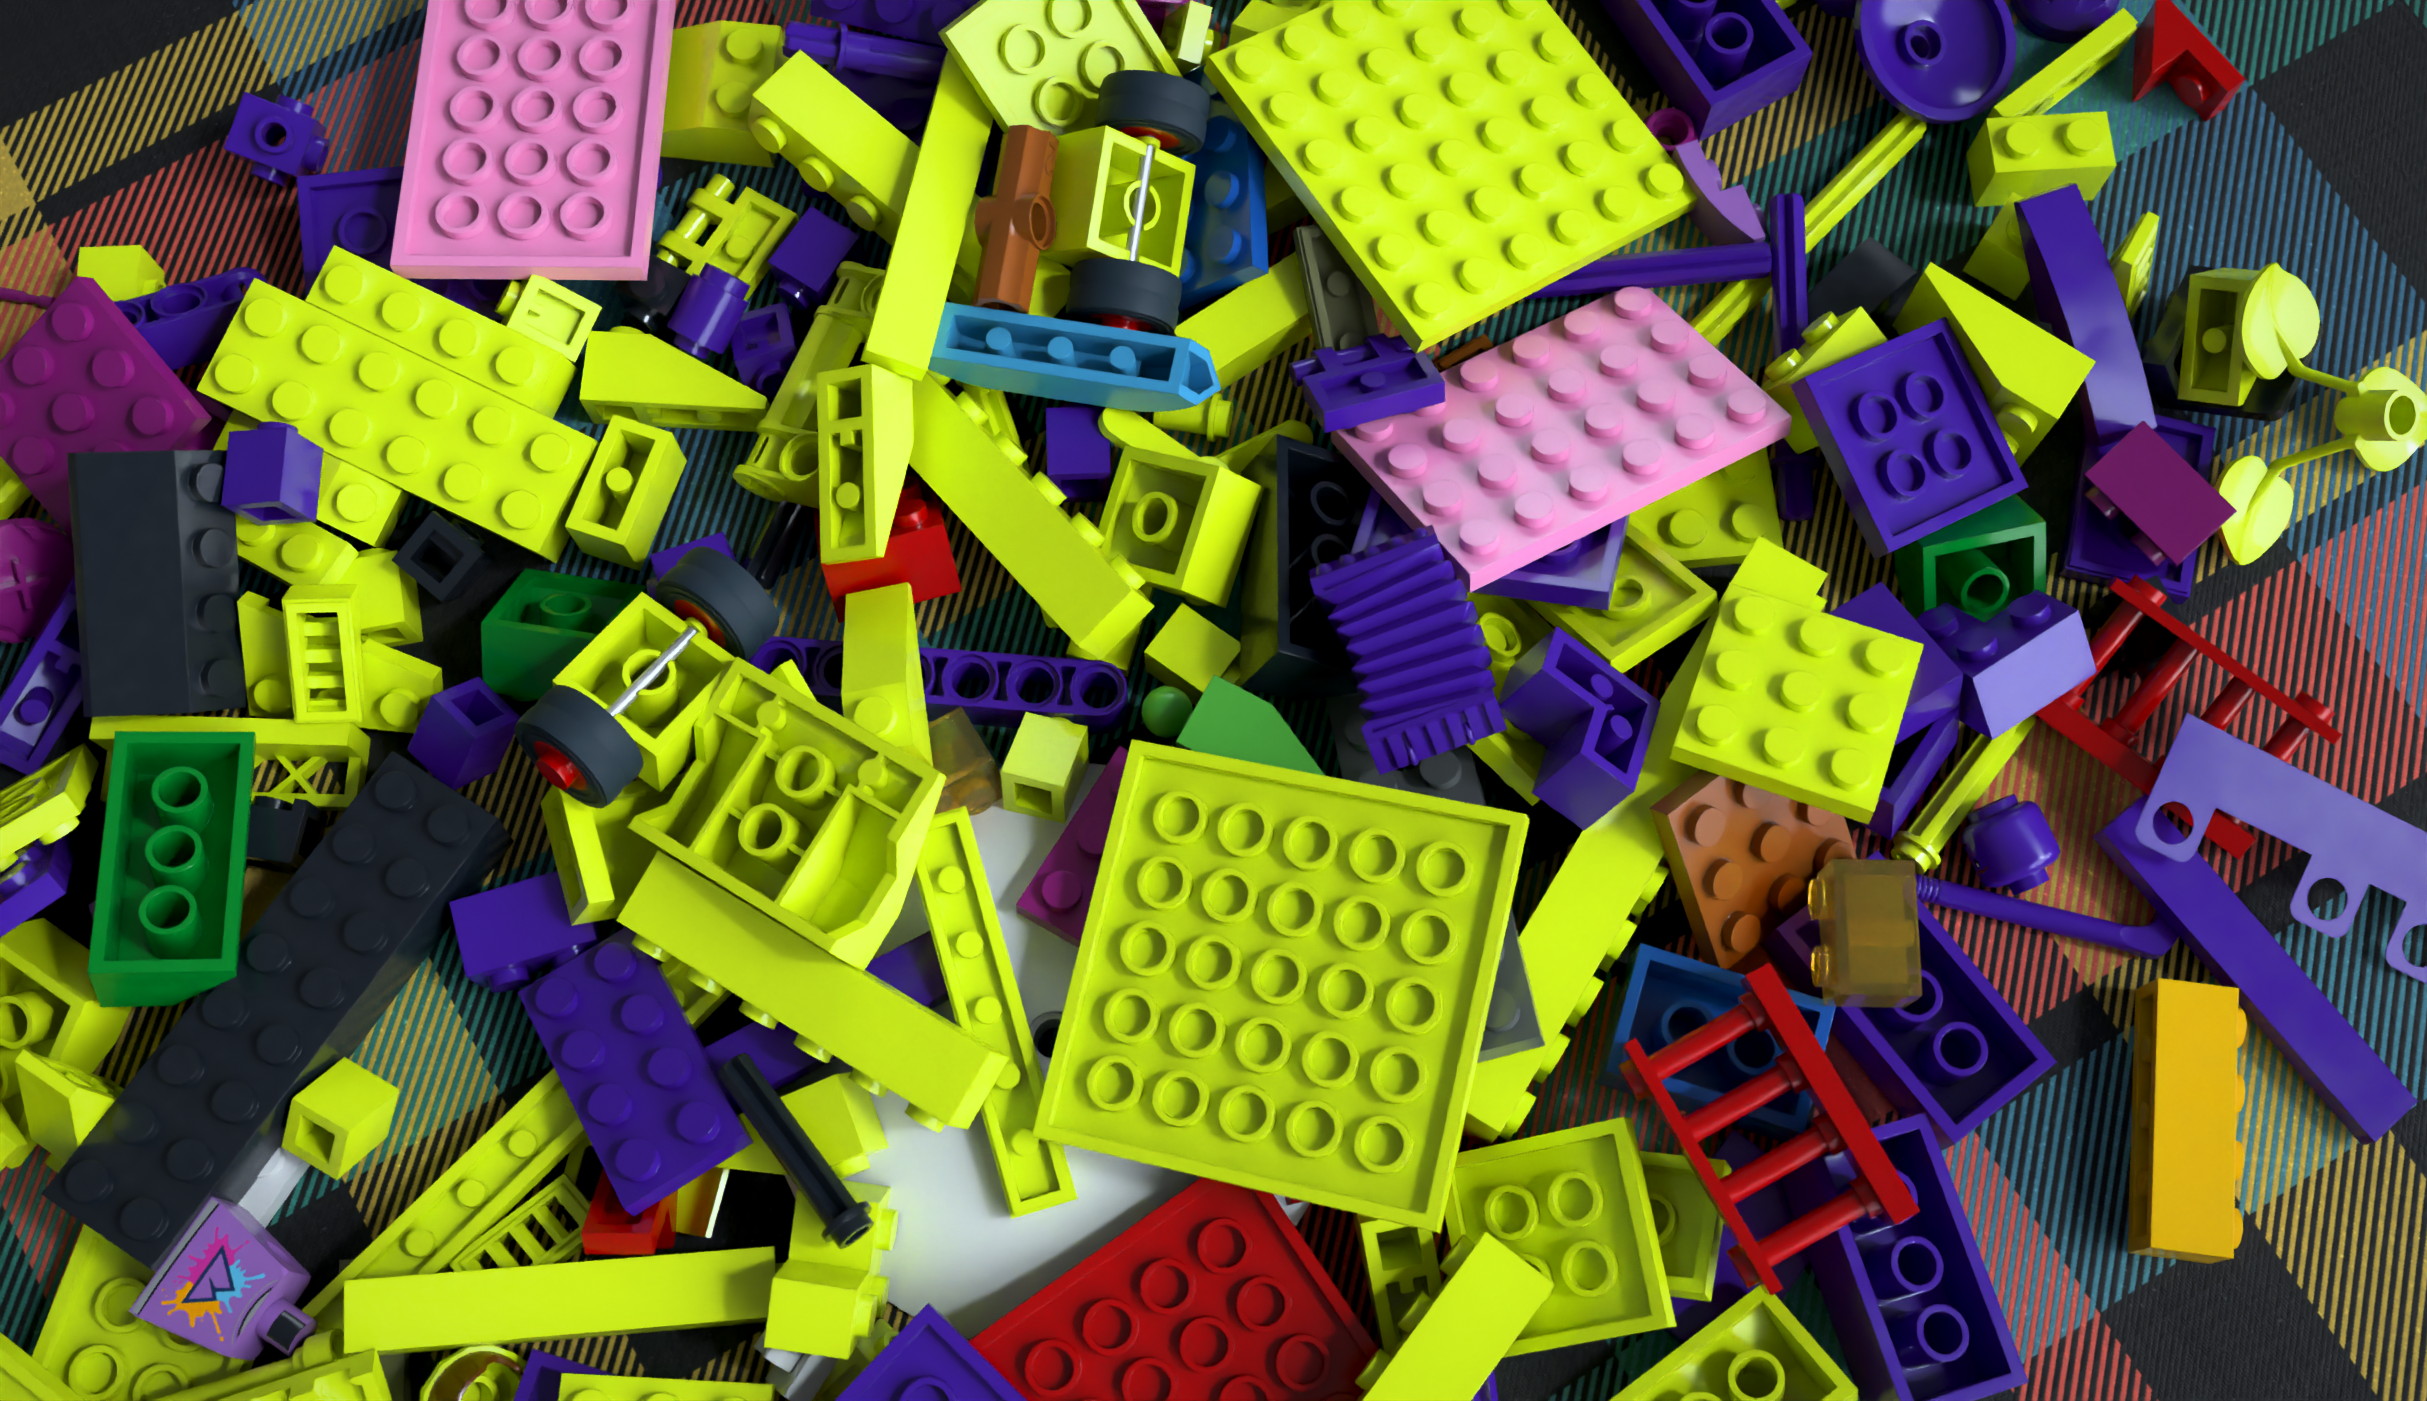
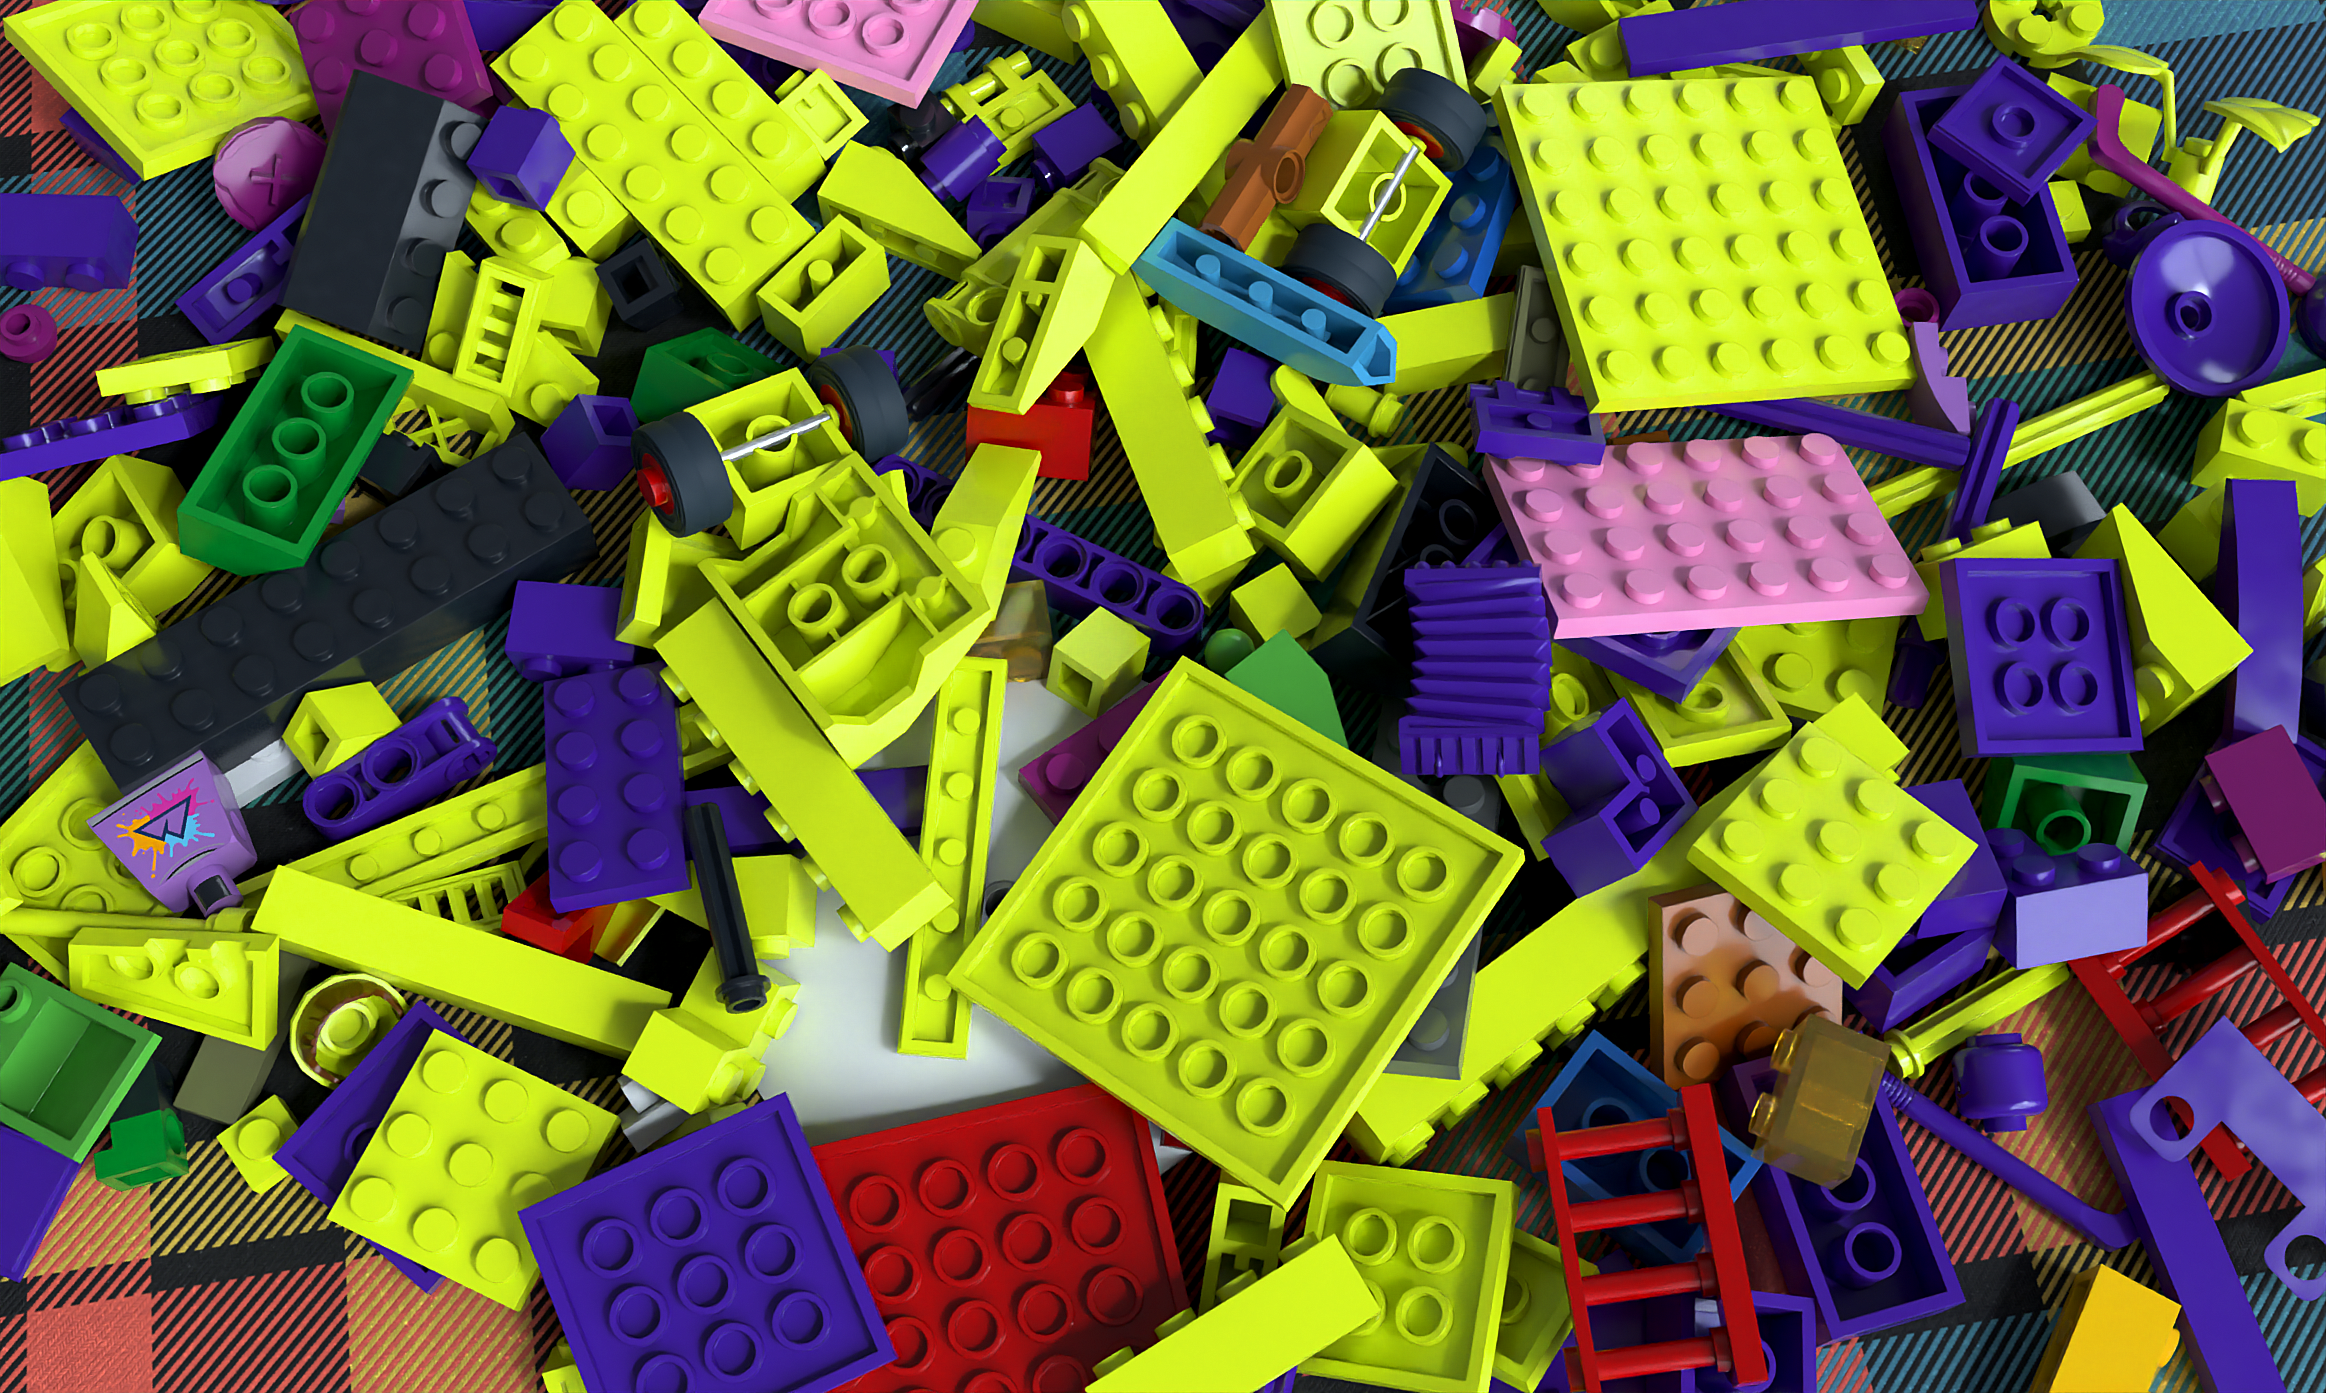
camera: 20 degrees right, 5 degrees down
(421, 1098) = (418, 744): none -> dark purple piece

